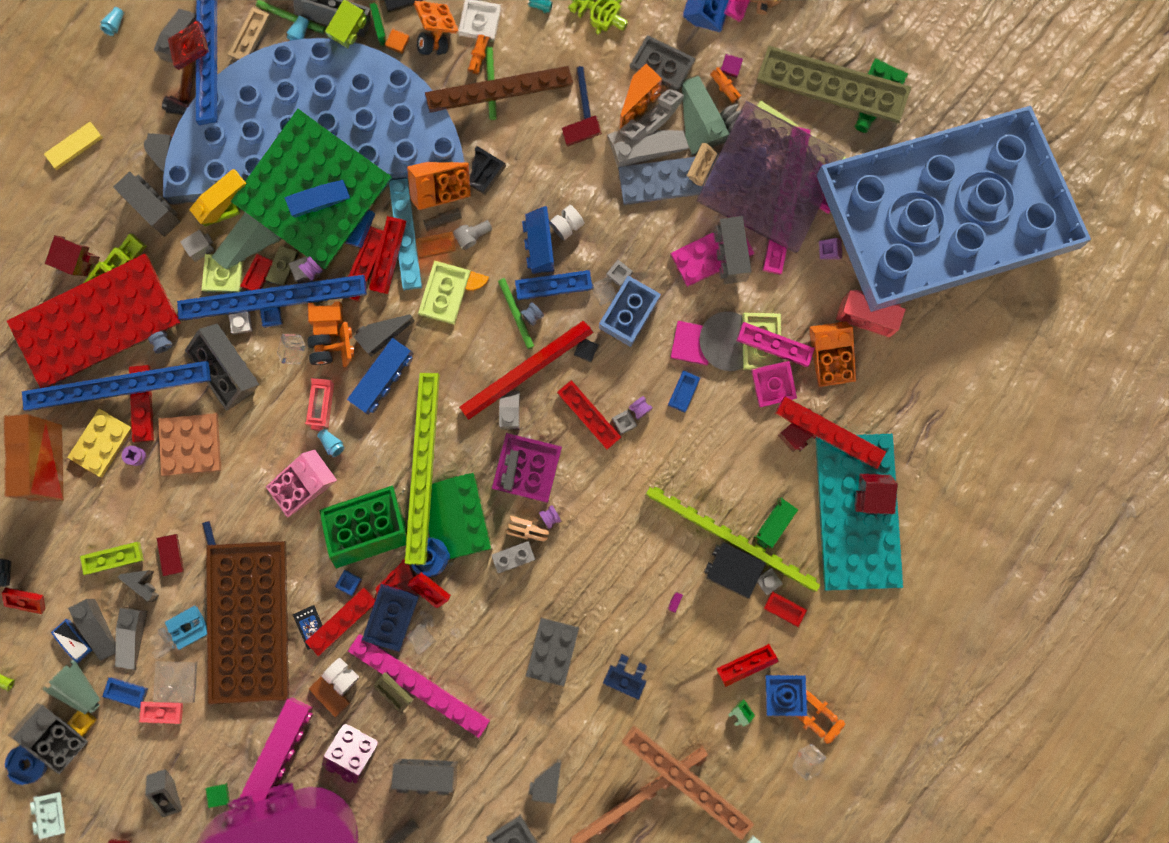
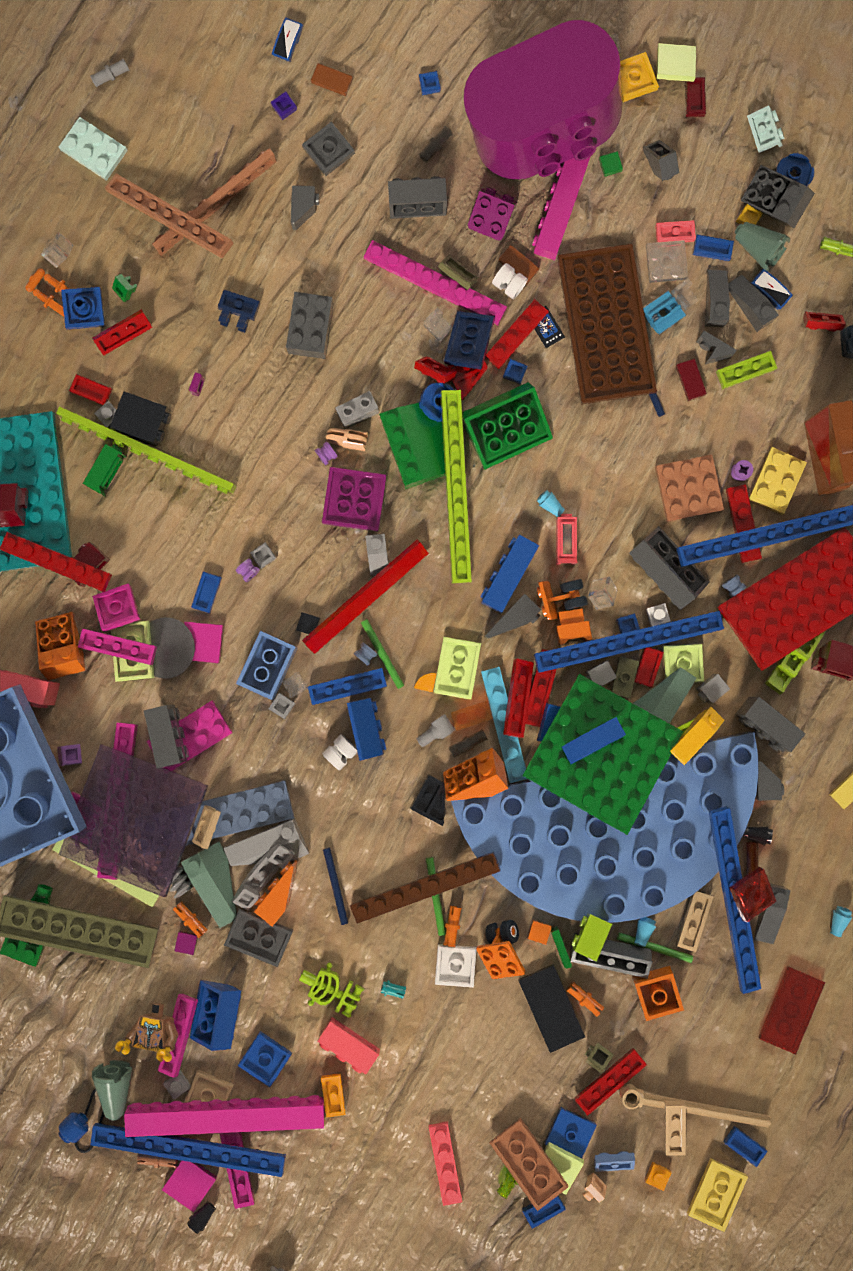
camera: 175 degrees right, 5 degrees up
(301, 482) = (573, 461): bright pink slope -> none
(310, 268) = (593, 672): medium lavender wheel -> none
(508, 478) = (369, 483): dark grey plate -> none
(581, 130) = (335, 853): dark red tile -> none
(589, 415) = (298, 558): red plate -> none

